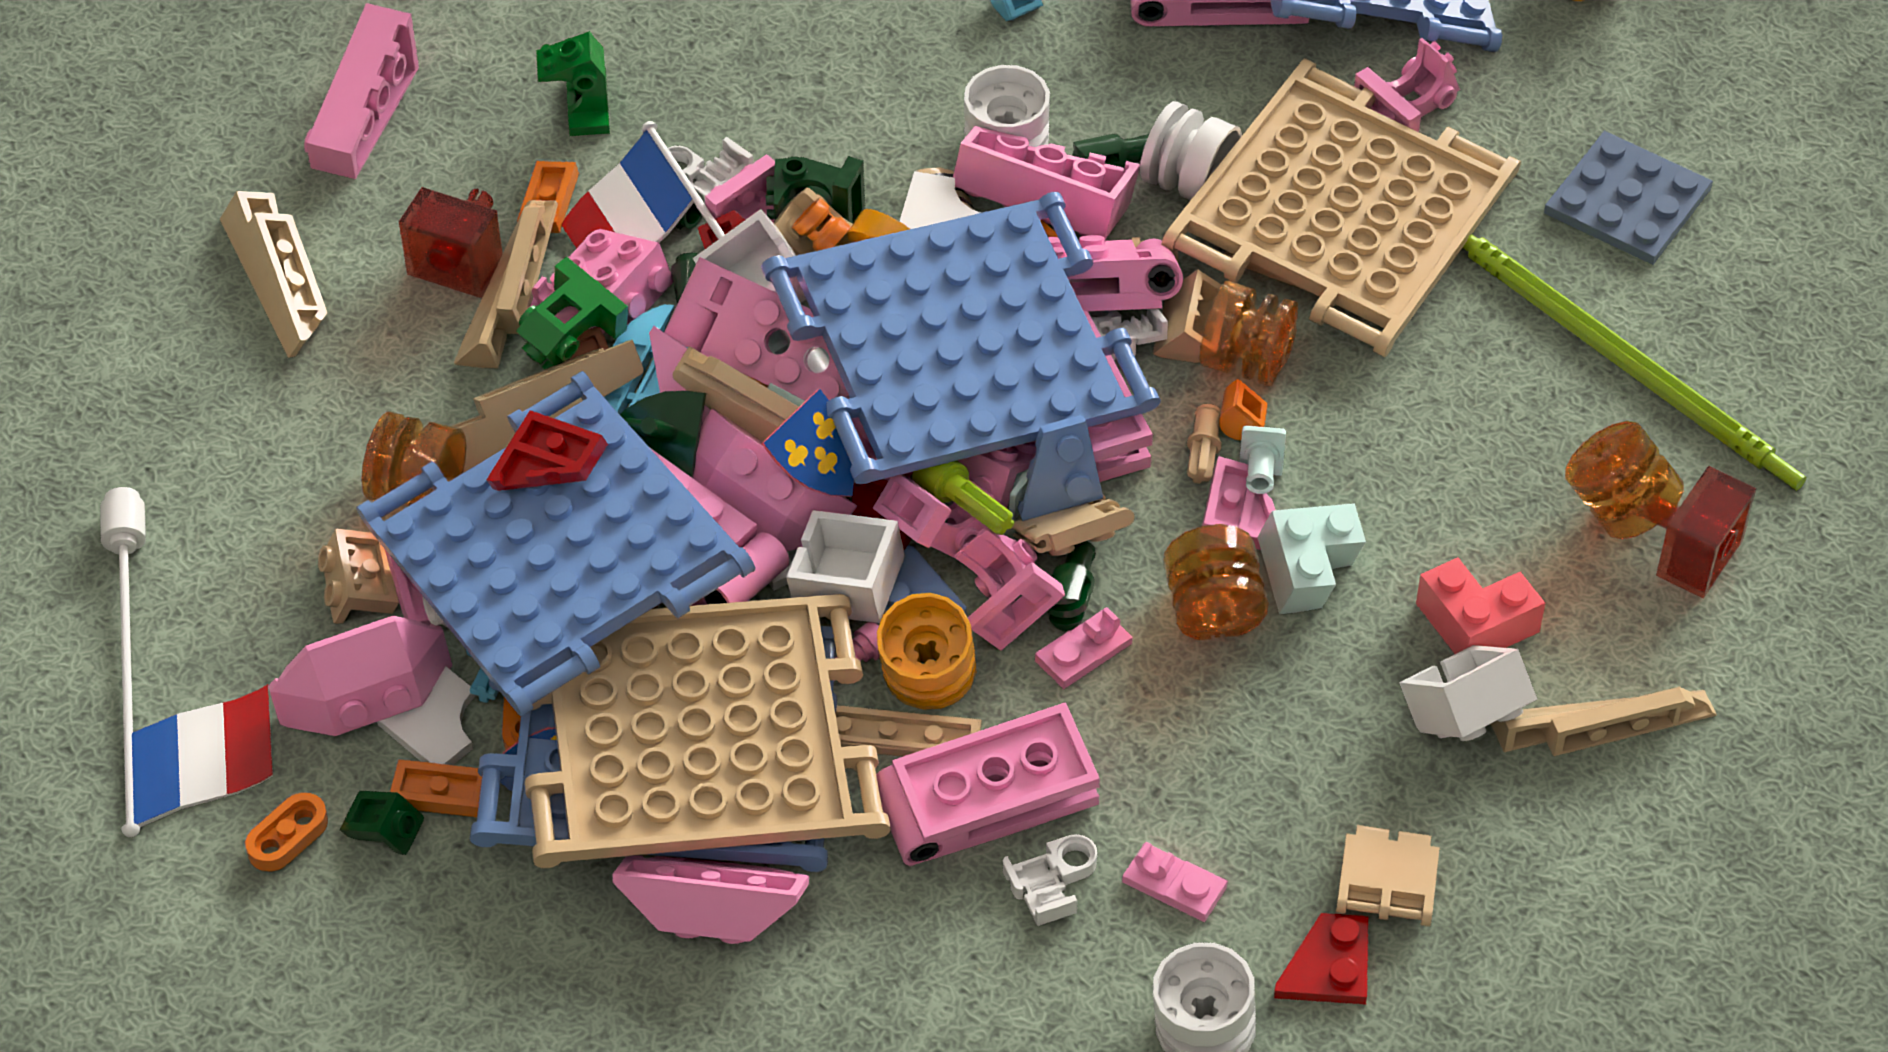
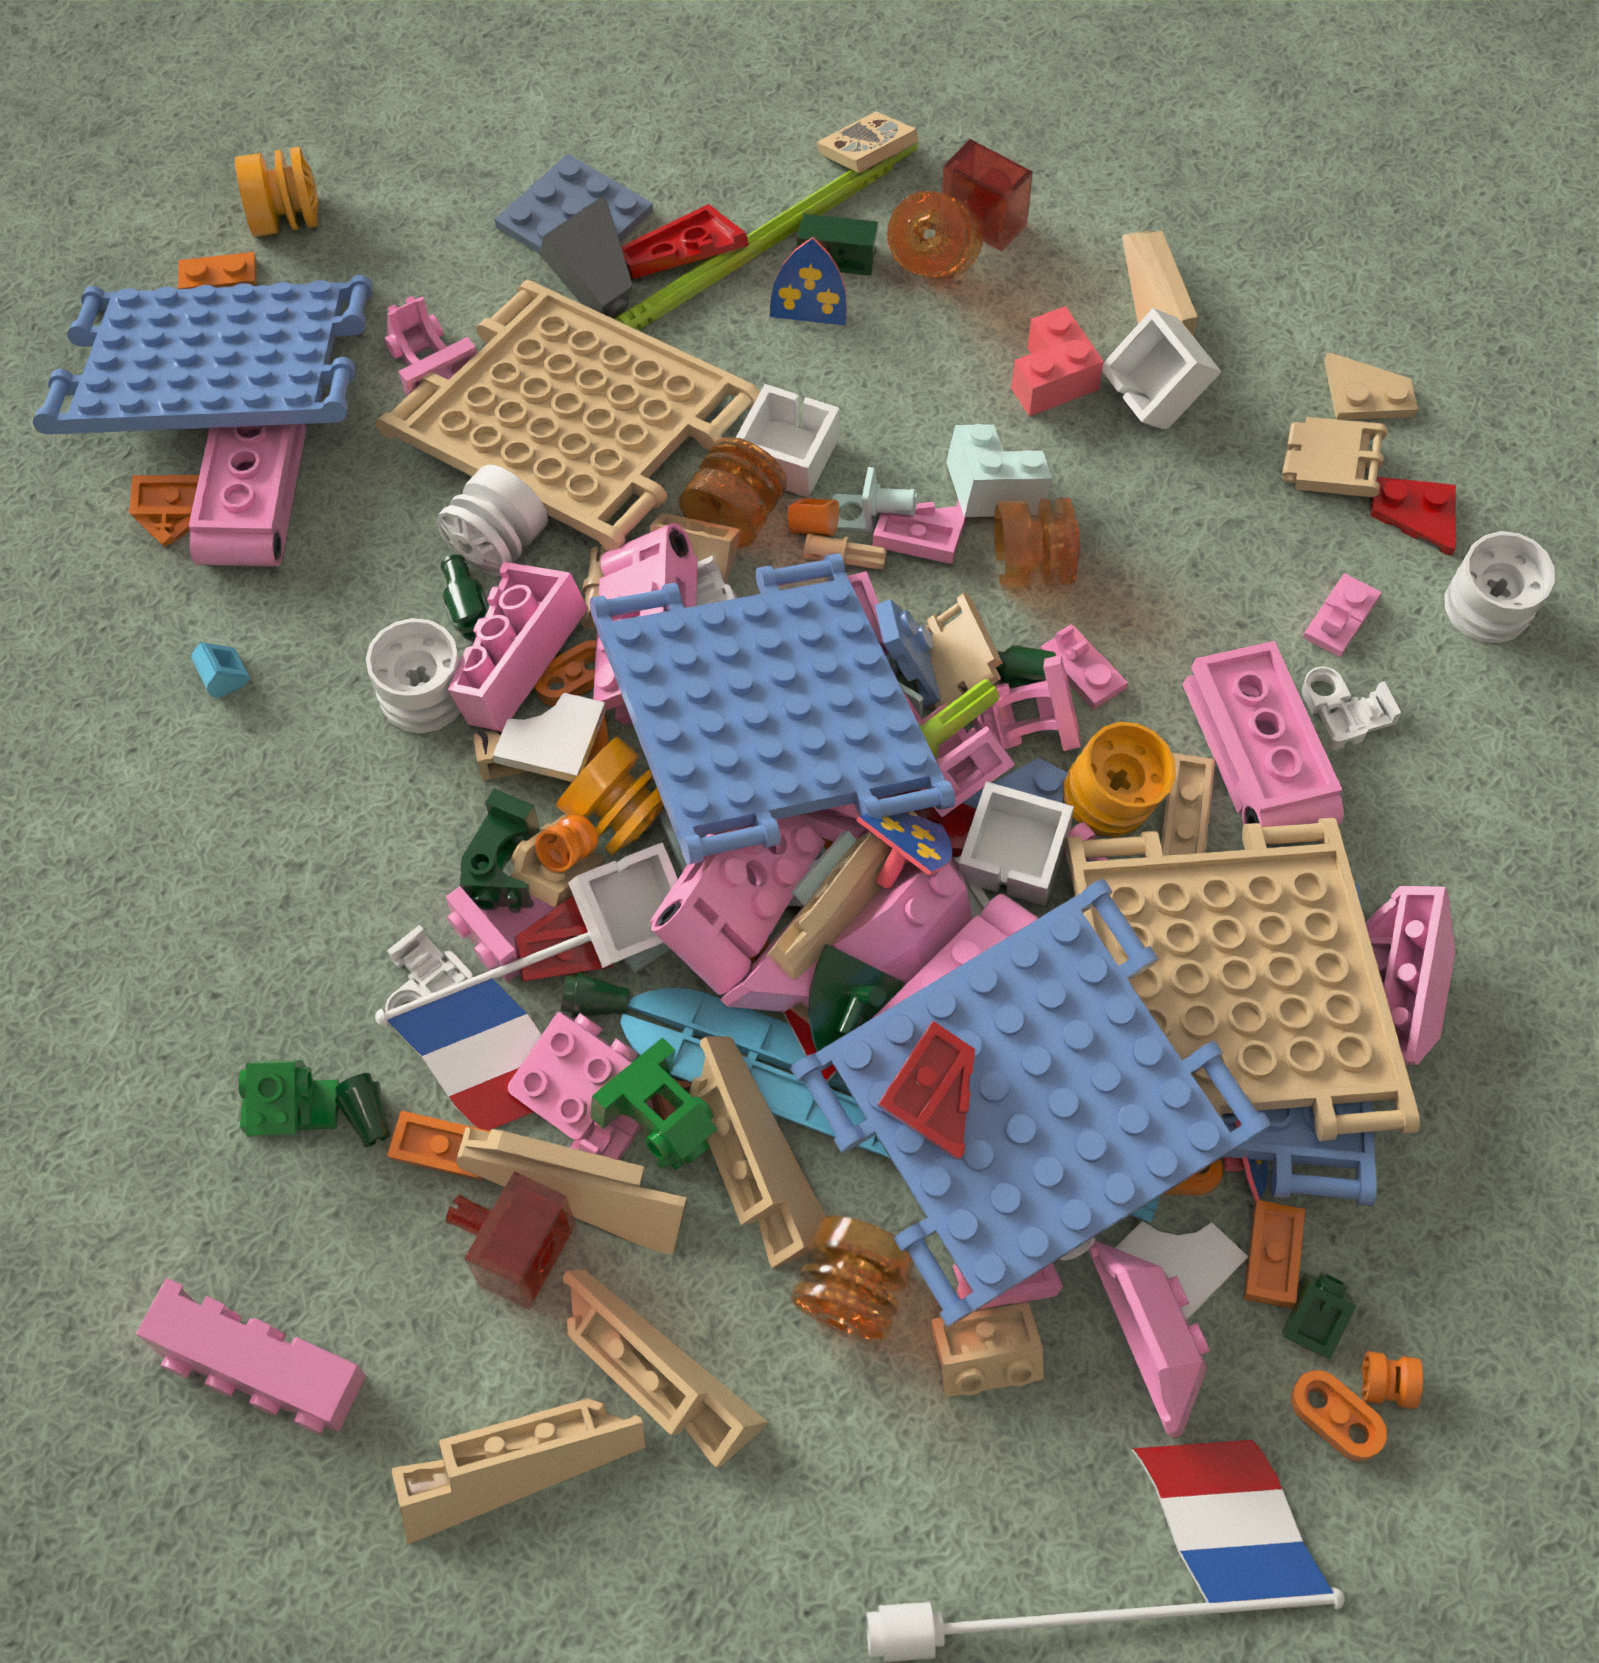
camera: 85 degrees left, 10 degrees up
(316, 865) = (1392, 1380): none -> orange wheel
(348, 355) = (658, 1372): none -> tan wedge
(583, 144) = (363, 1107): none -> dark green cone
(1328, 377) = (798, 450): none -> white piece
(1499, 921) = (1368, 391): none -> tan wing
(1545, 201) = (590, 259): none -> dark grey slope
(1546, 384) = (809, 287): none -> blue shield
(1597, 282) = (683, 241): none -> red wing
(1623, 398) = (845, 239): none -> dark green hinge
(1783, 434) = (868, 142): none -> tan tile

